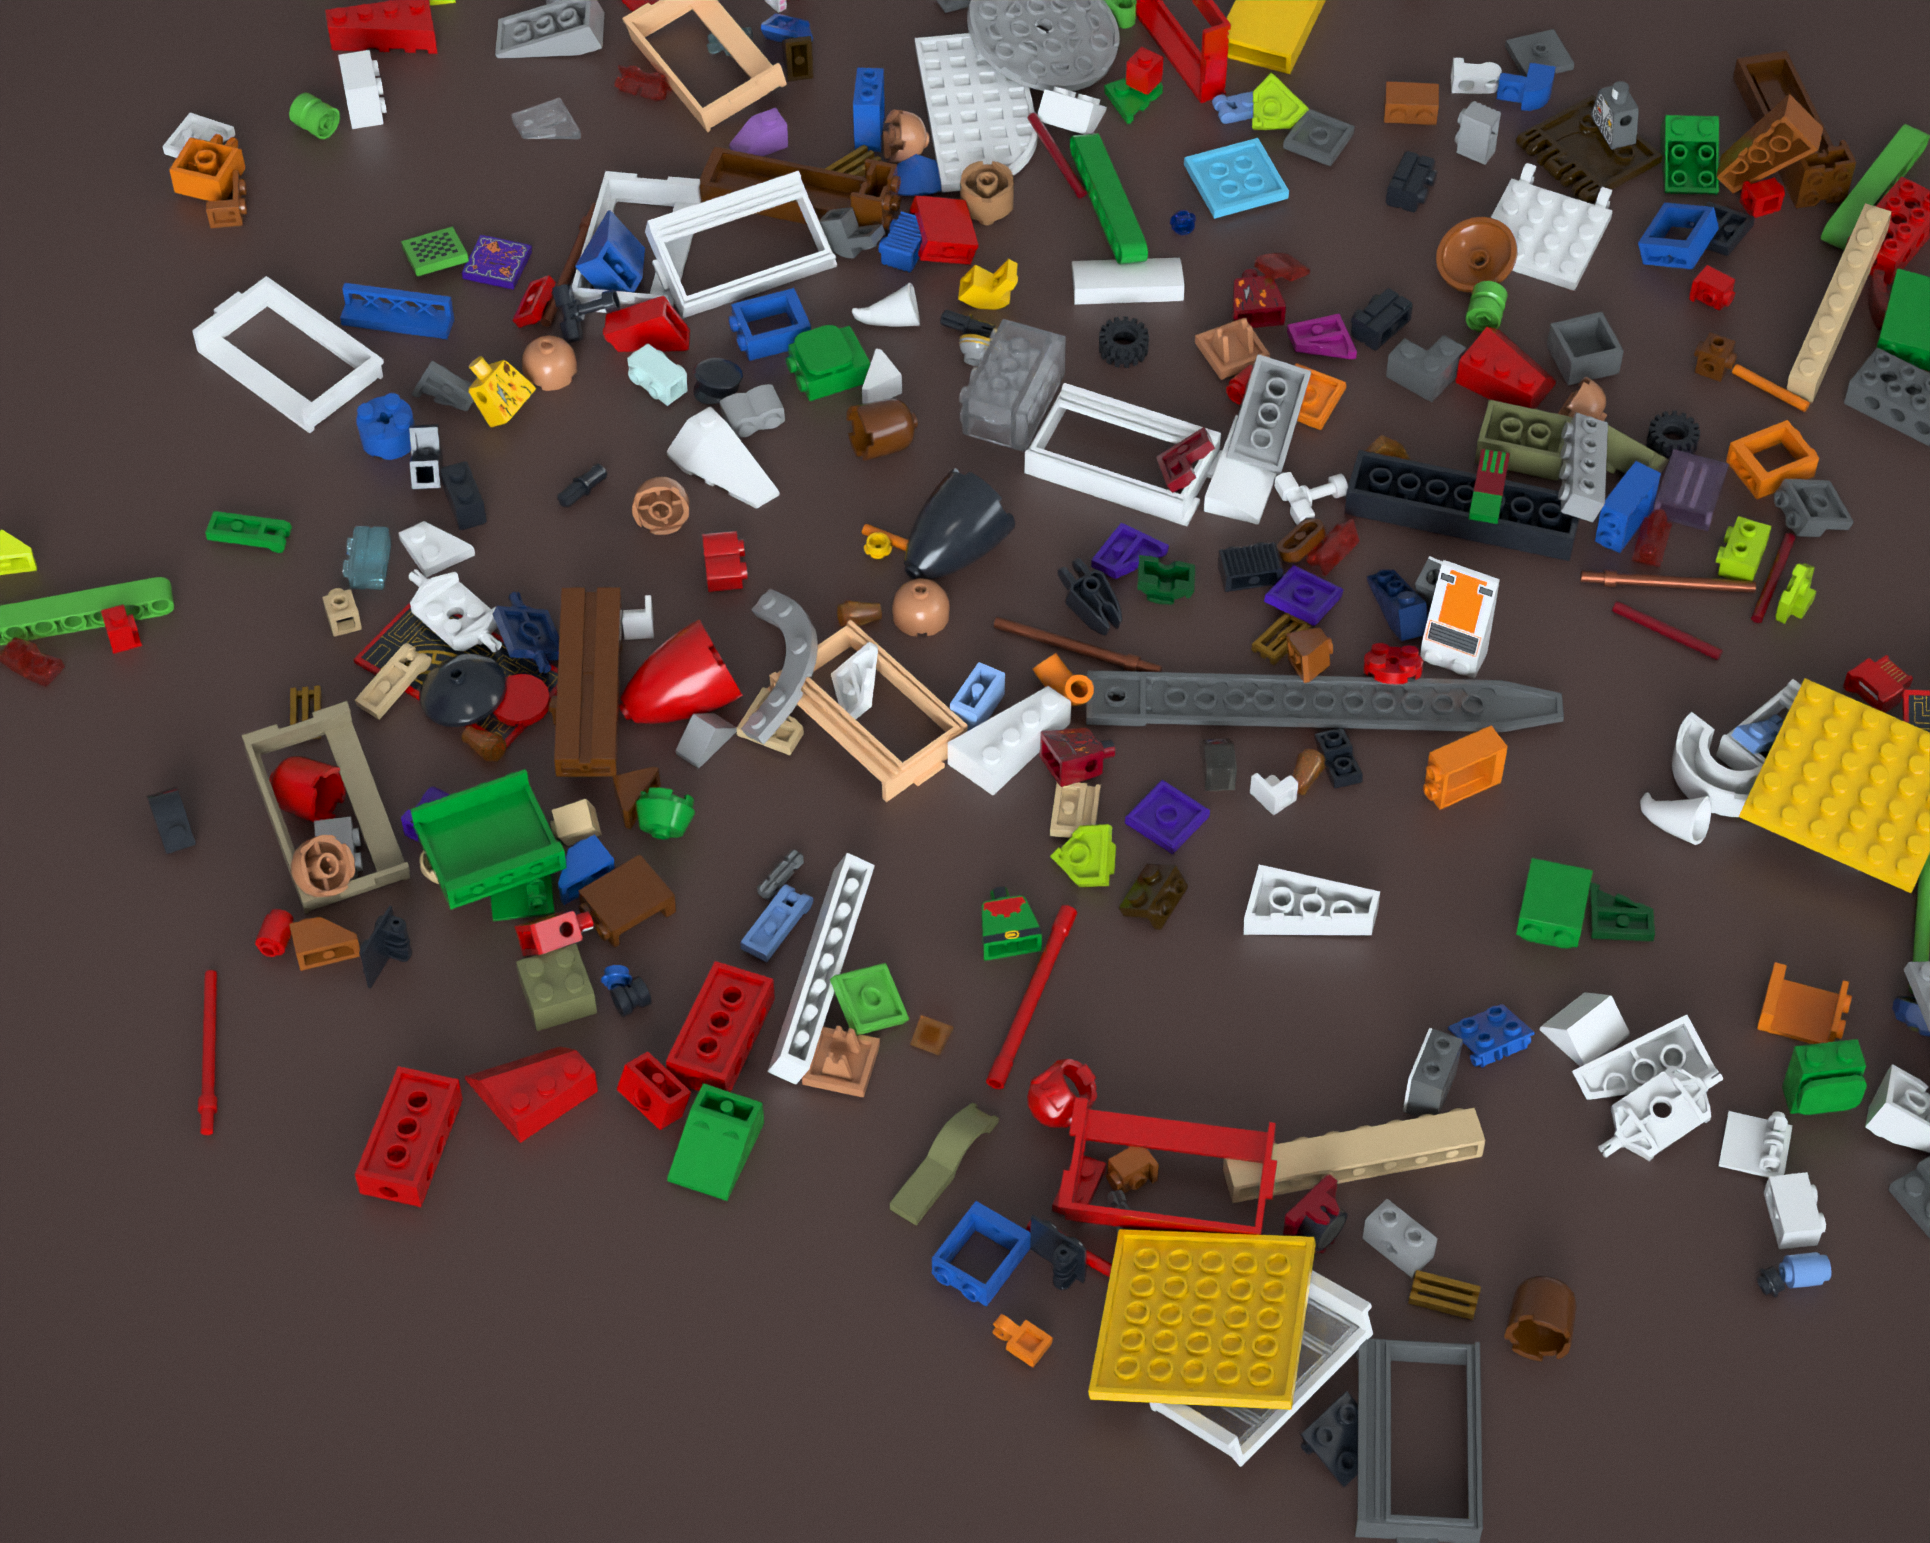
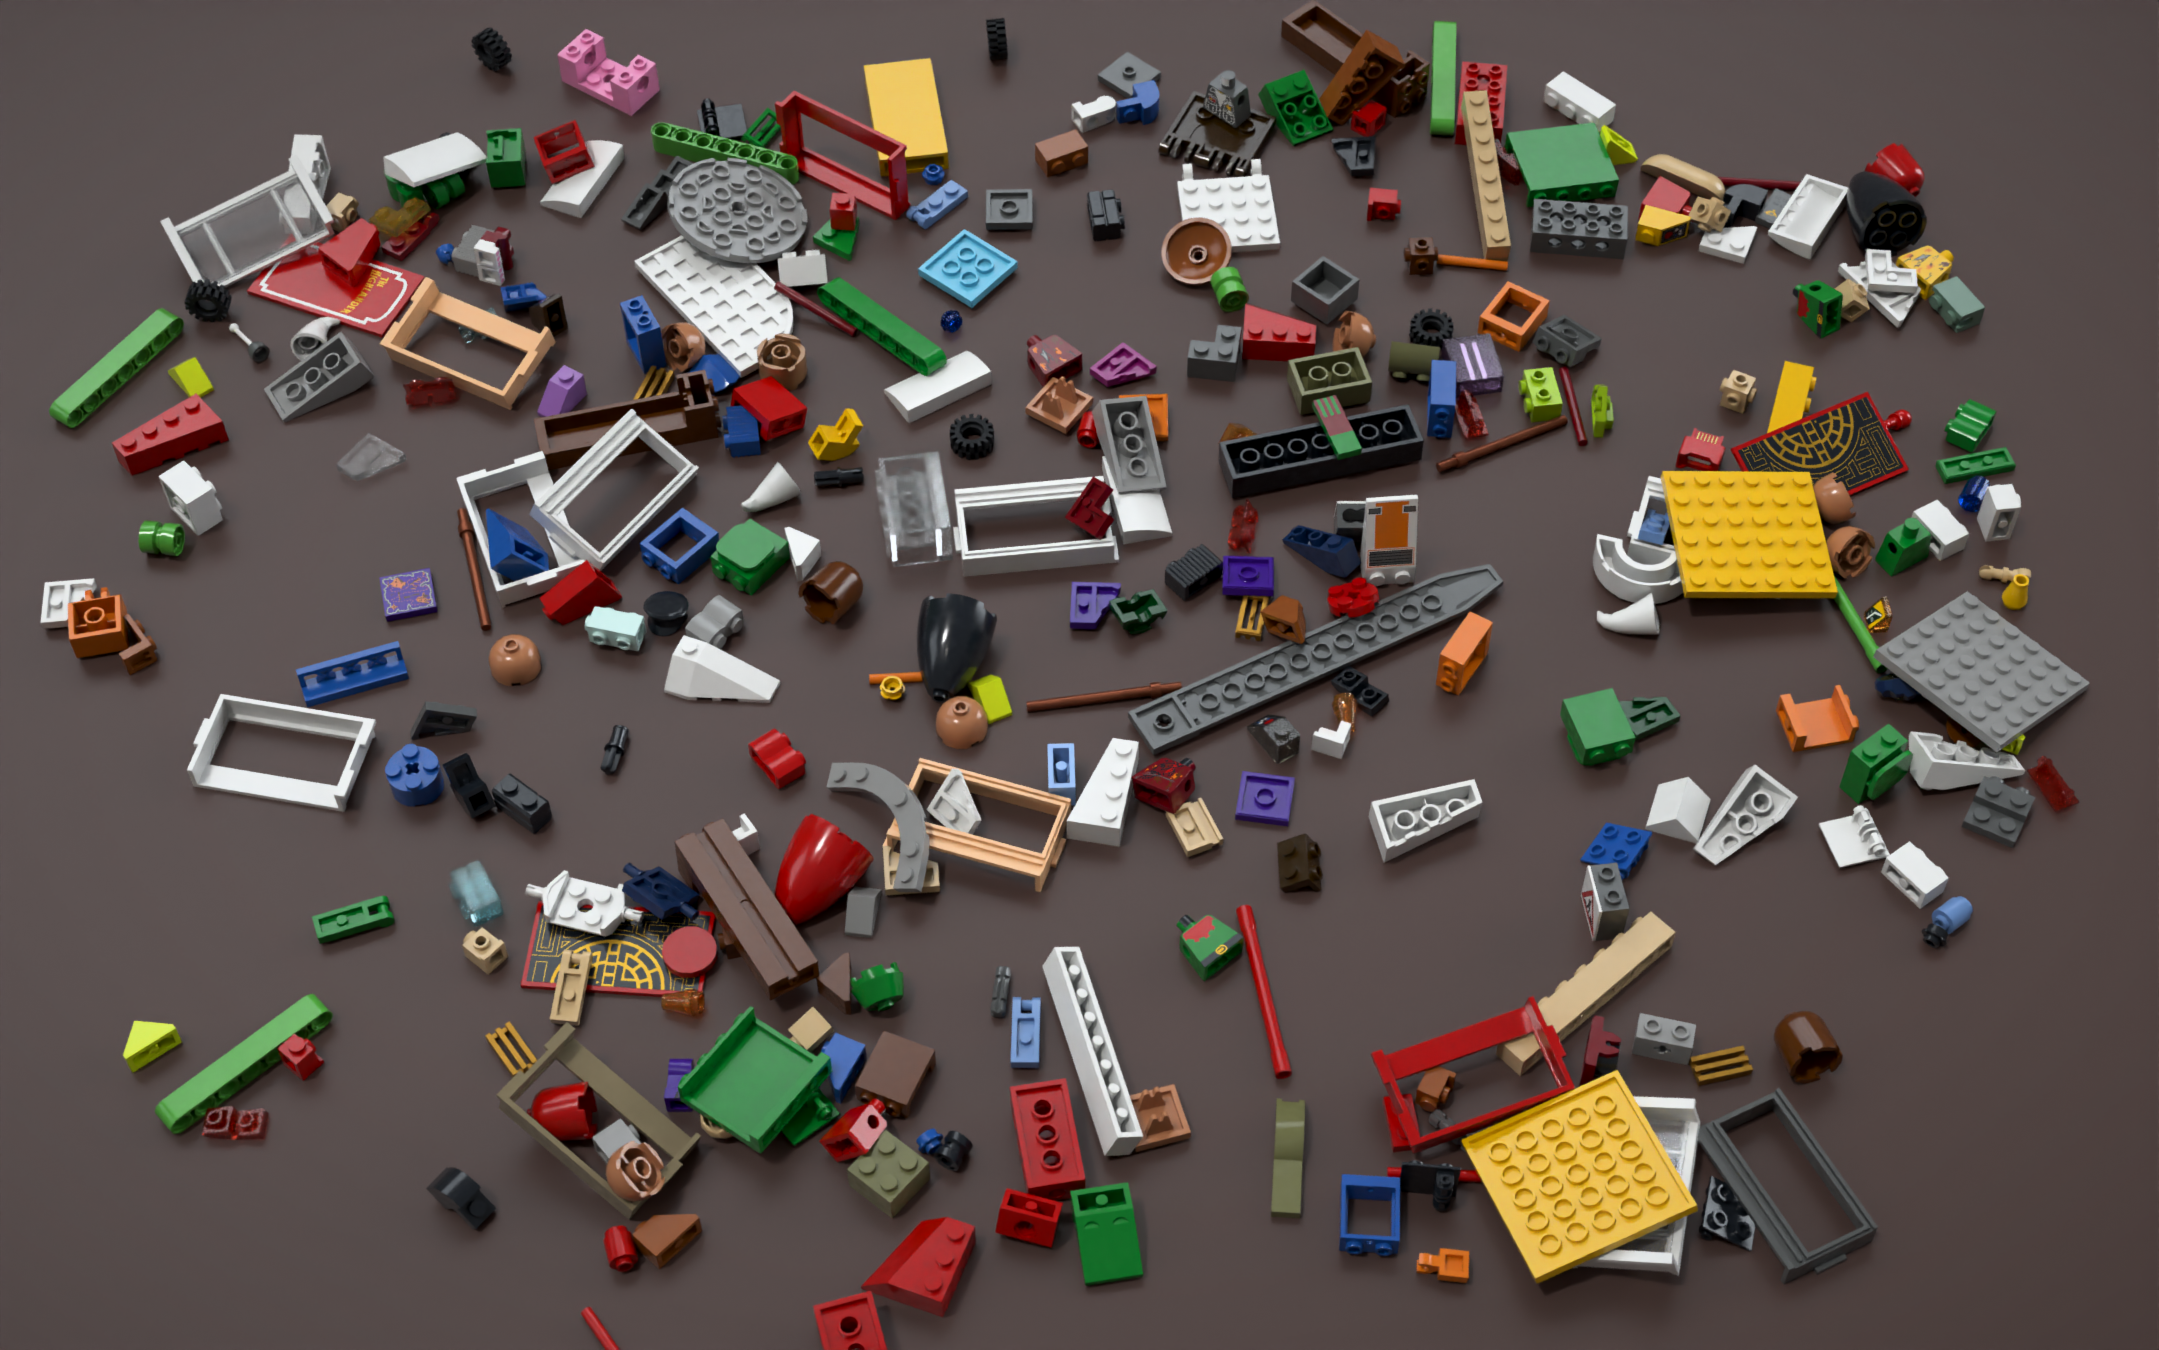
camera: 30 degrees left, 0 degrees up
(387, 941) = (729, 1205): black hinge -> none
(434, 251) = (349, 608): bright green tile -> none
(434, 548) = (523, 859): white wing -> none
(463, 690) = (644, 975): black dish -> none
(498, 390) = (493, 702): yellow torso -> none
(534, 301) = (466, 613): red plate -> none
(574, 311) = (511, 608): black bar -> none
(661, 505) = (696, 735): nougat cylinder -> none
(845, 234) = (696, 446): dark grey brick -> none
(858, 612) = (912, 751): clear orange cone -> none
(869, 999) = (1146, 1056): bright green tile -> none
(931, 1035) = (1207, 1061): clear orange slope -> none
(965, 599) = (992, 696): none -> neon yellow slope
(972, 346) = (861, 493): light grey piece -> none
(1050, 1096) = (1347, 1057): red helmet -> none
(1056, 675) = (1107, 727): orange cylinder -> none
(1088, 855) = (1230, 858): lime plate -> none
(1091, 597) = (1091, 652): black hinge -> none
(1265, 69) = (933, 174): none -> blue plate
(1275, 106) = (962, 197): lime plate -> none
(1281, 265) = (1054, 324): clear red slope -> none
(1301, 497) = (1194, 499): white bar -> none
(1301, 540) = (1217, 532): reddish brown plate -> none
(1381, 319) = (1156, 332): black brick -> none
(1478, 132) = (1132, 155): light grey brick -> none
(1583, 467) = (1397, 381): light grey brick -> none
(1648, 1134) = (1768, 865): white plate -> none
(1667, 630) = (1527, 480): dark red bar -> none
(1684, 253) = (1345, 186): blue window -> none

